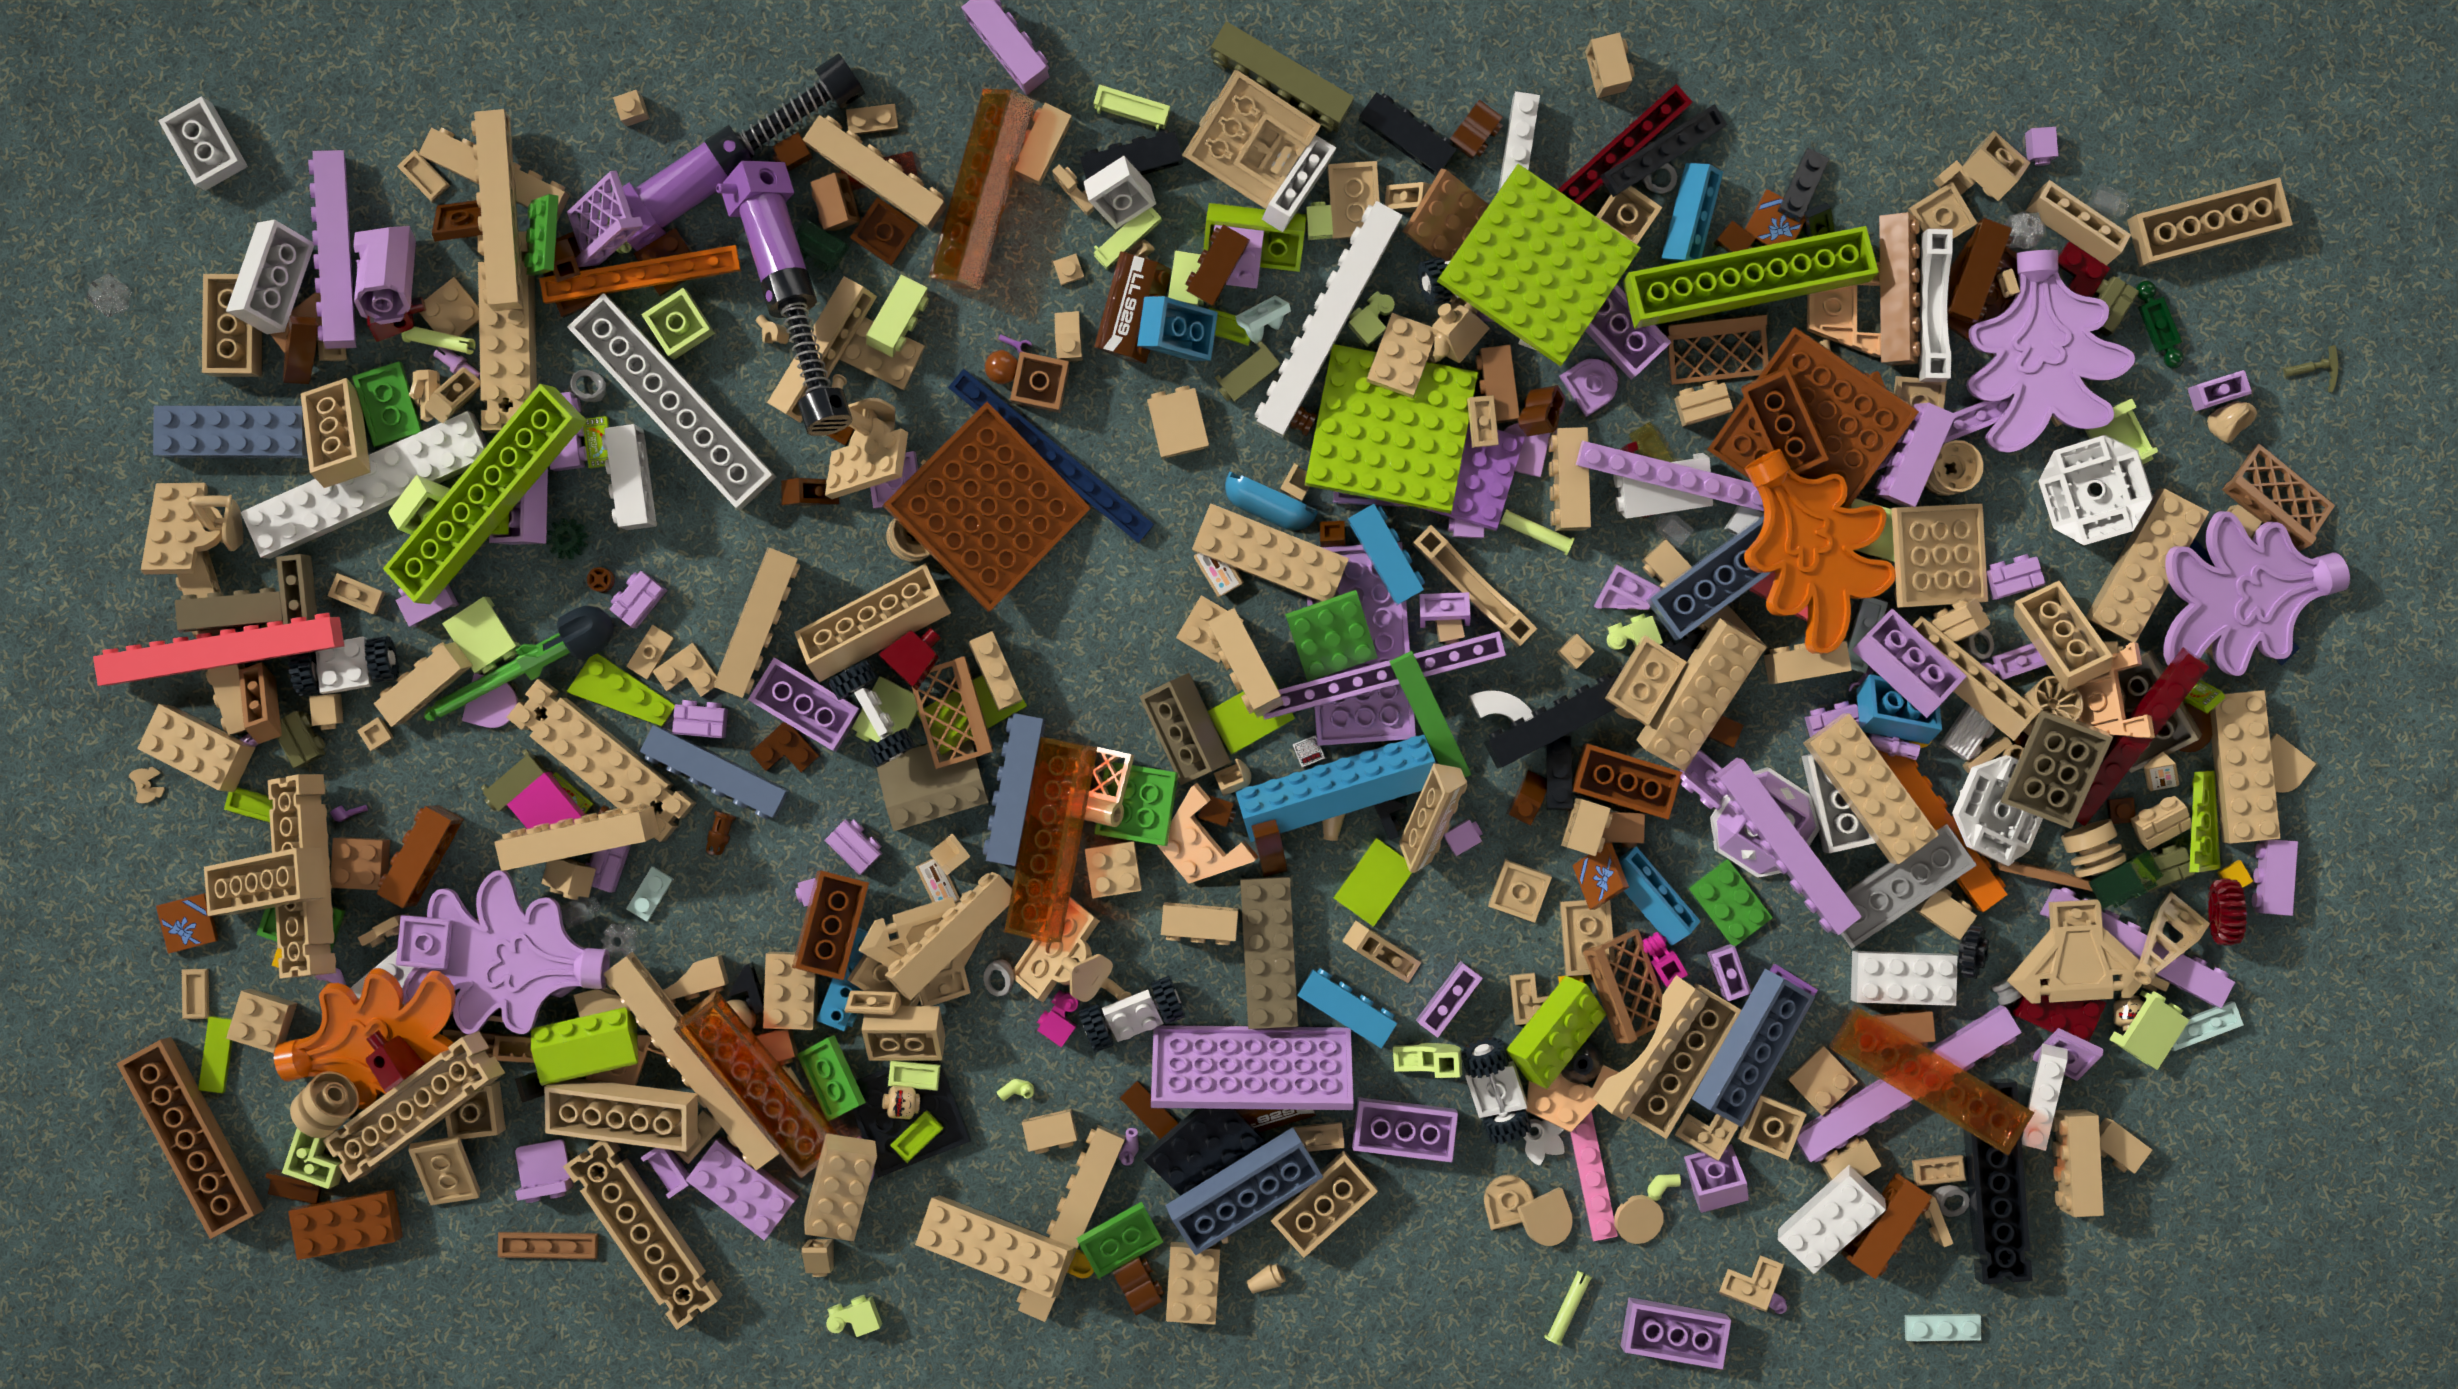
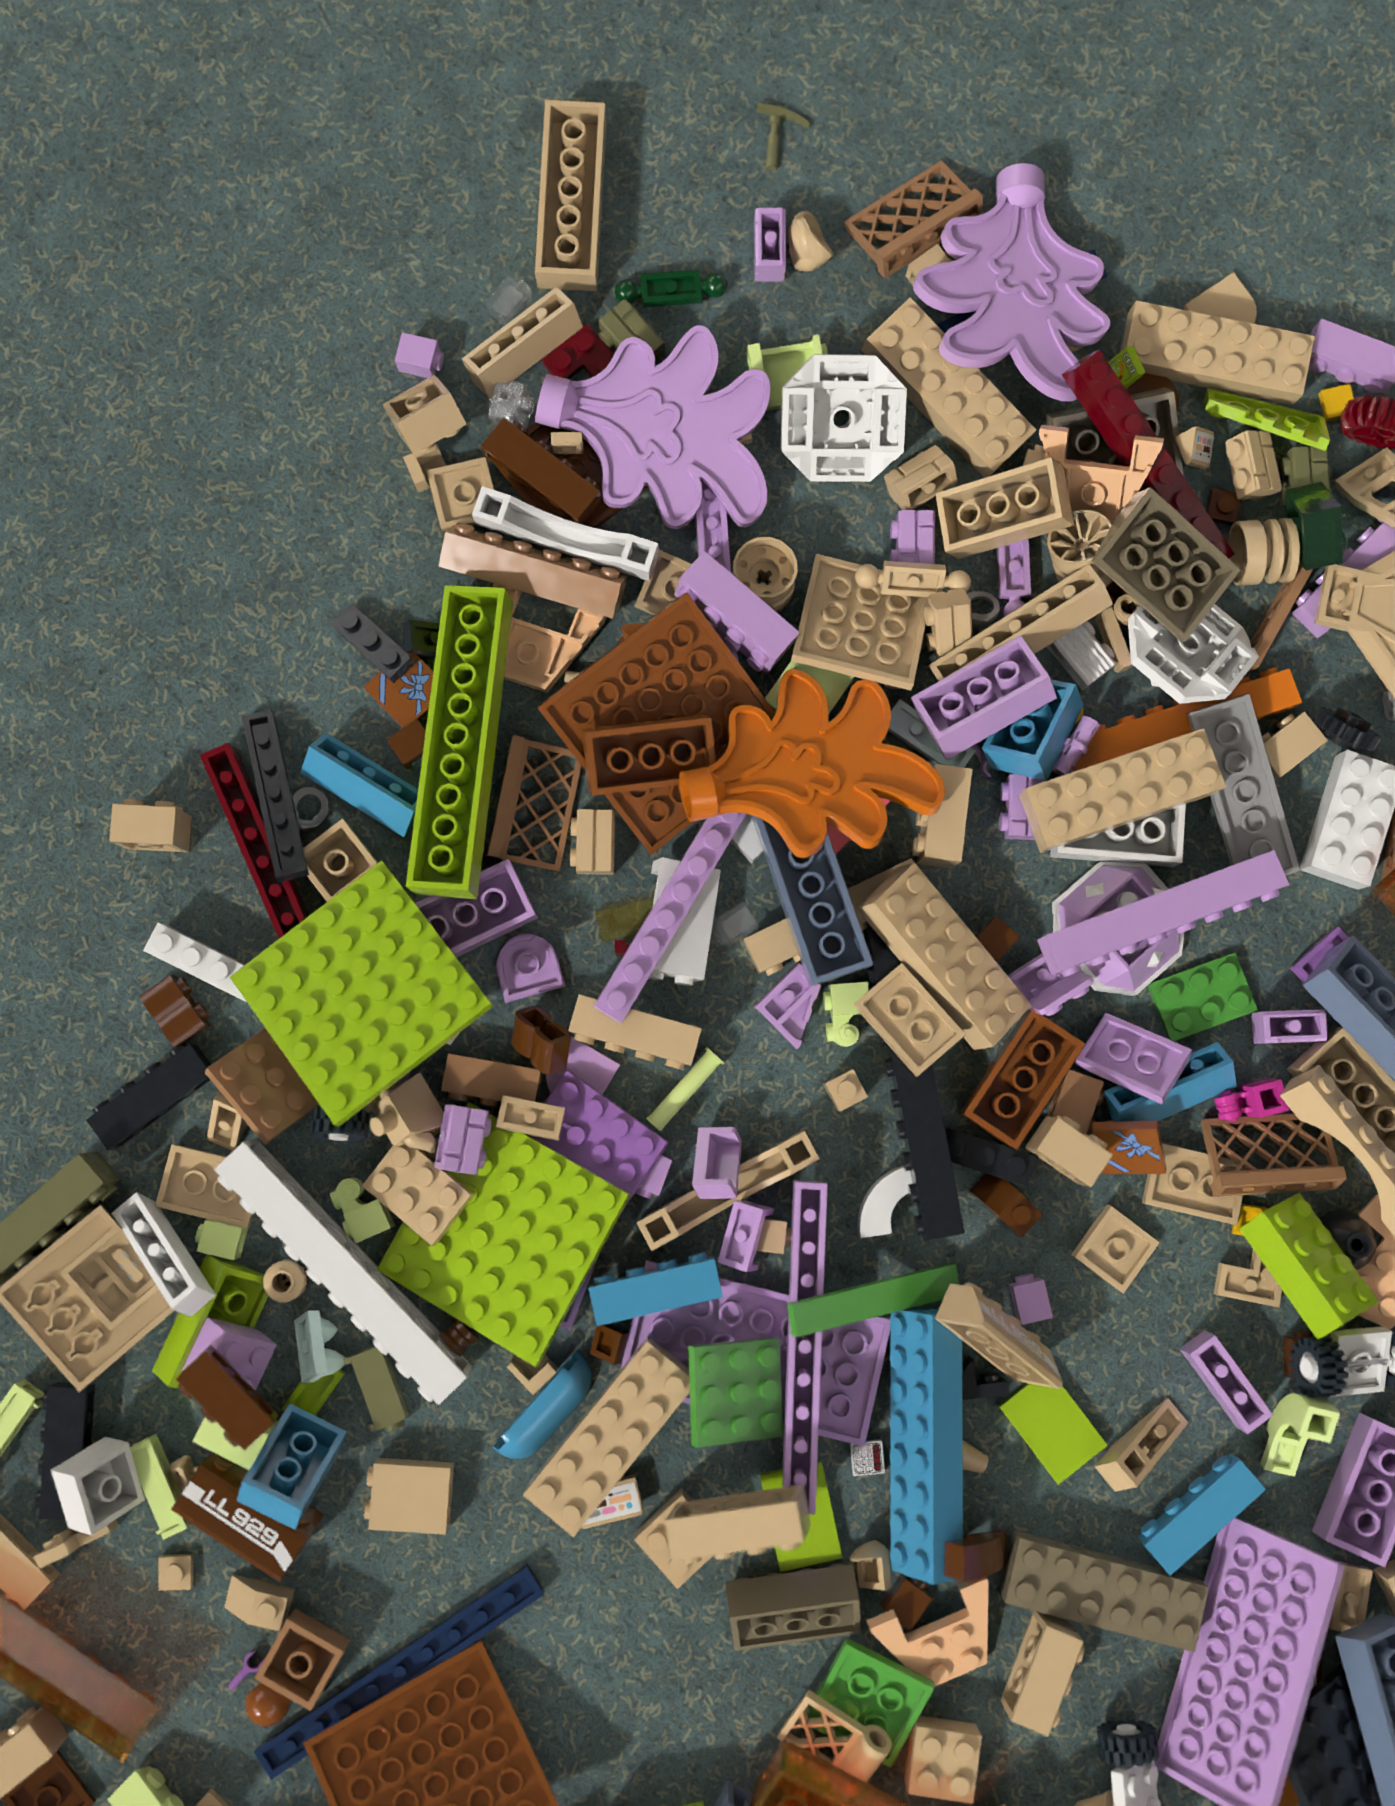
camera: 70 degrees left, 5 degrees down
(1304, 270) = (276, 1286): none -> tan head
(1452, 376) = (462, 1140): none -> lavender brick
(1492, 571) = (717, 1163): none -> lavender panel
(1669, 859) = (1134, 1058): none -> lavender plate
(1985, 581) = (911, 578): none -> tan plate
(2068, 566) = (921, 478): none -> tan brick

